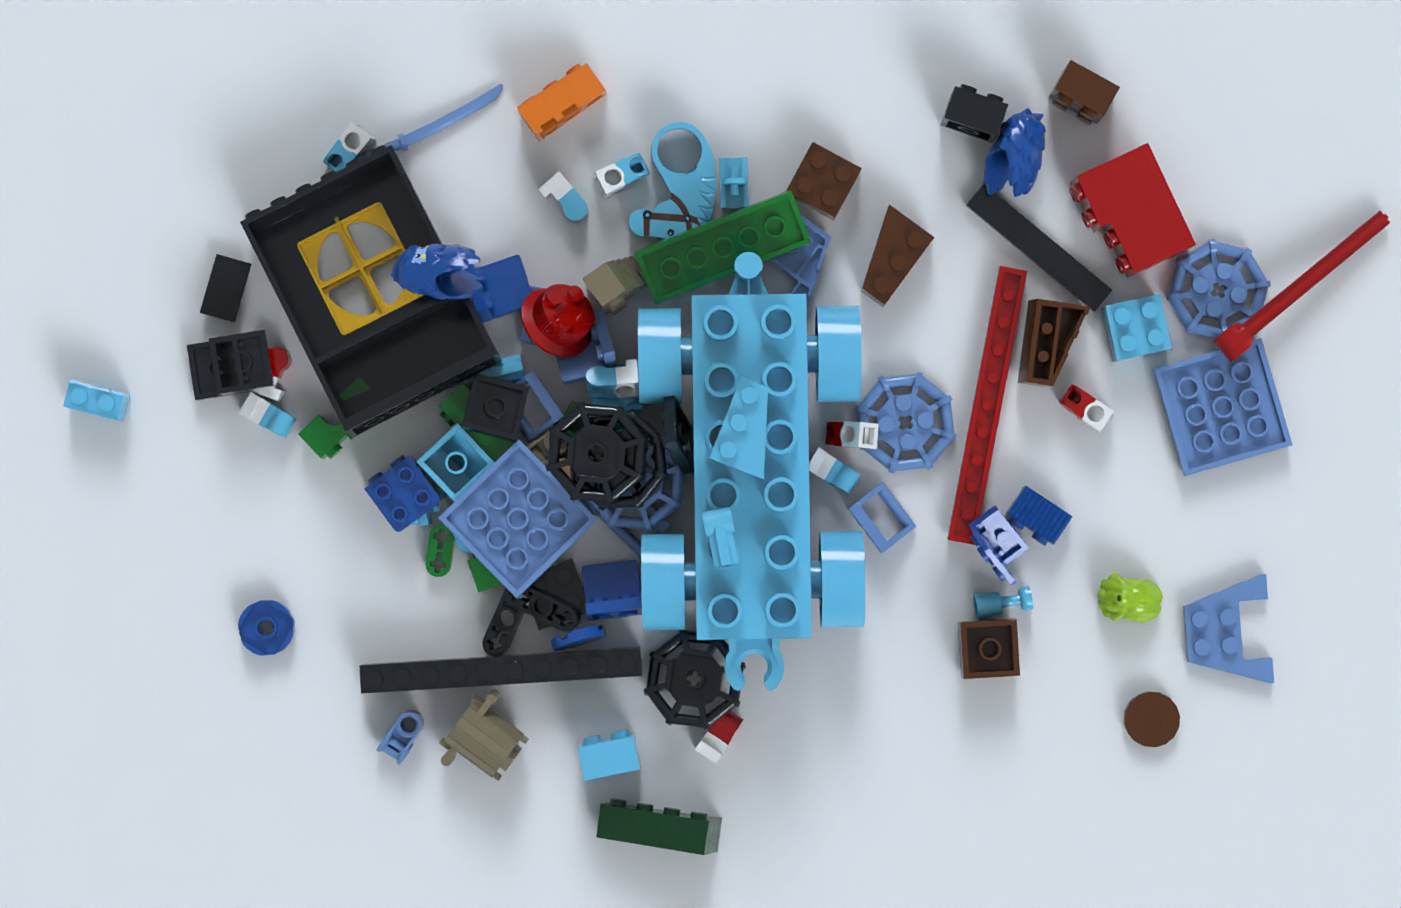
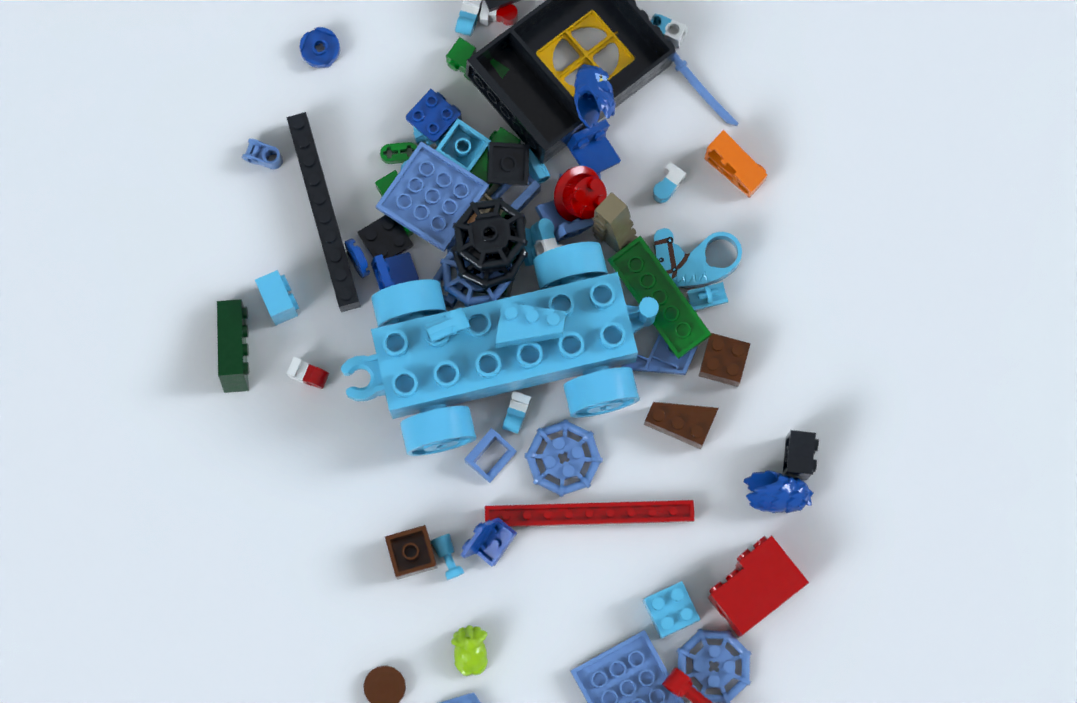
camera: 70 degrees right, 10 degrees down
(483, 737) = (272, 208): dark tan container -> none
(518, 609) = (370, 214): black beam -> none
(620, 174) = (694, 218): leg -> none
(677, 435) = (517, 285): black plate -> none
(680, 688) = (335, 339): black plate -> none
(852, 434) = (545, 420): white leg -> none
(1038, 515) = (516, 569): blue brick -> none
(1039, 248) = (713, 528): black tile -> none
(1047, 339) = (648, 546): reddish brown wedge -> none
(1083, 93) = (834, 531): reddish brown brick -> none
(1086, 408) = (603, 587): leg -> none

